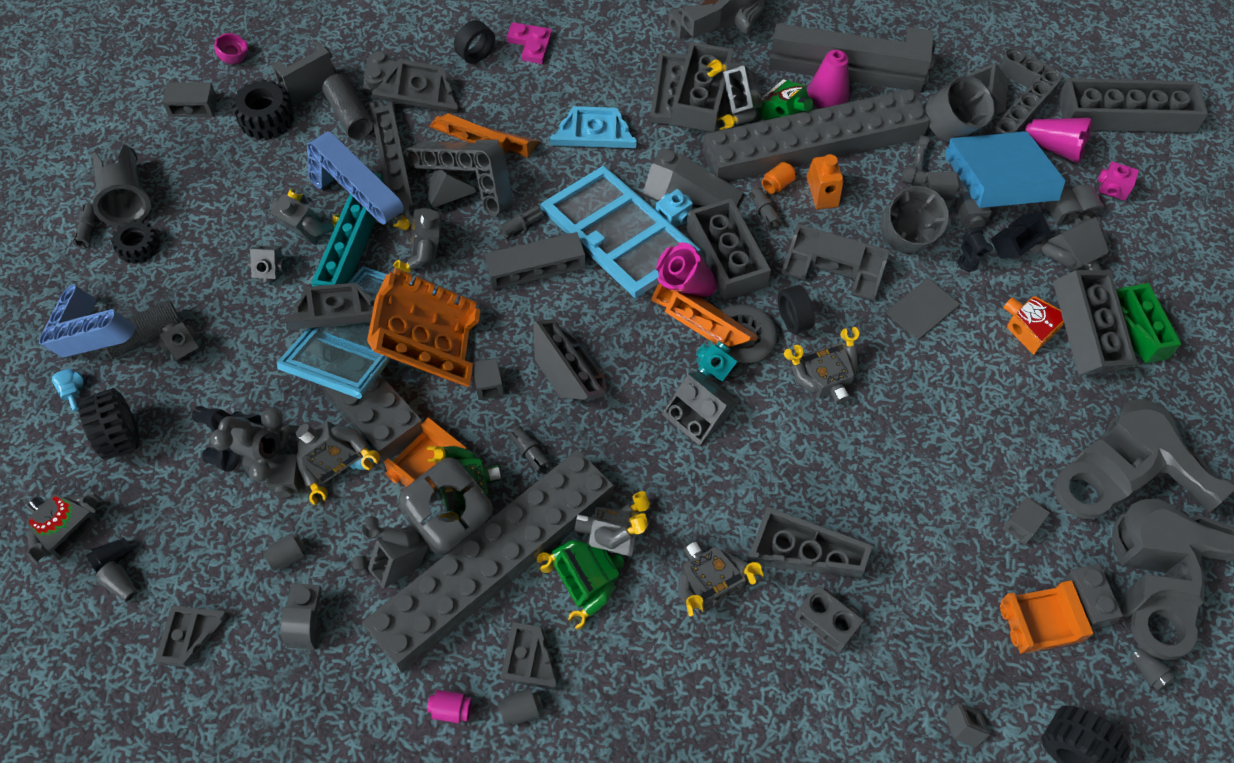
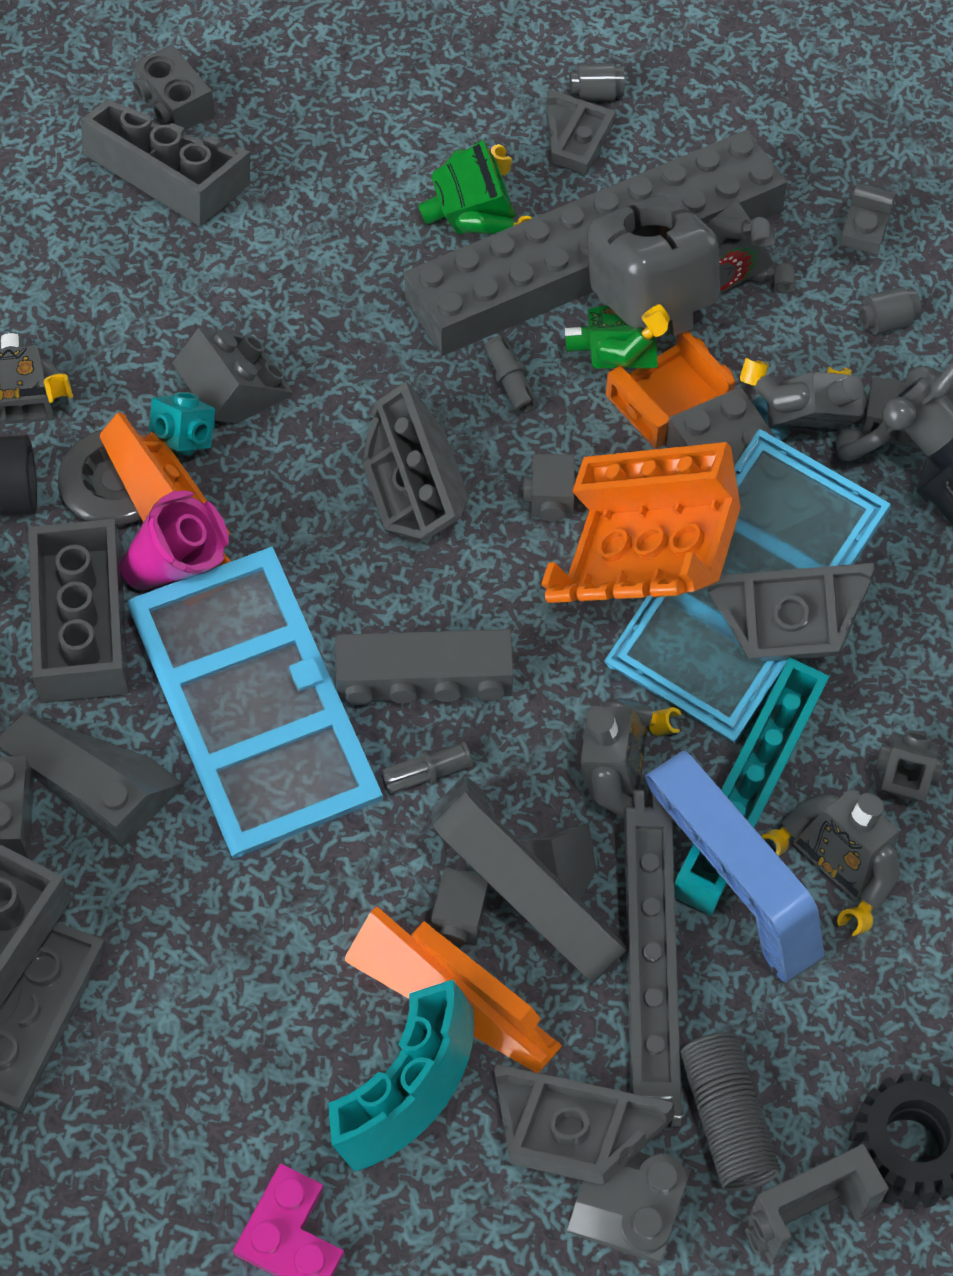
camera: 165 degrees left, 0 degrees up
(449, 706) = (685, 99): dark pink brick -> none
(465, 37) = (421, 1219): black tyre -> none
(496, 74) = (418, 1085): none -> teal brick
(593, 129) = (228, 947): medium azure wing -> none
(614, 528) = (419, 219): dark grey torso -> none
(674, 207) = (139, 711): medium azure brick -> none
(712, 577) = (306, 159): dark grey torso -> none

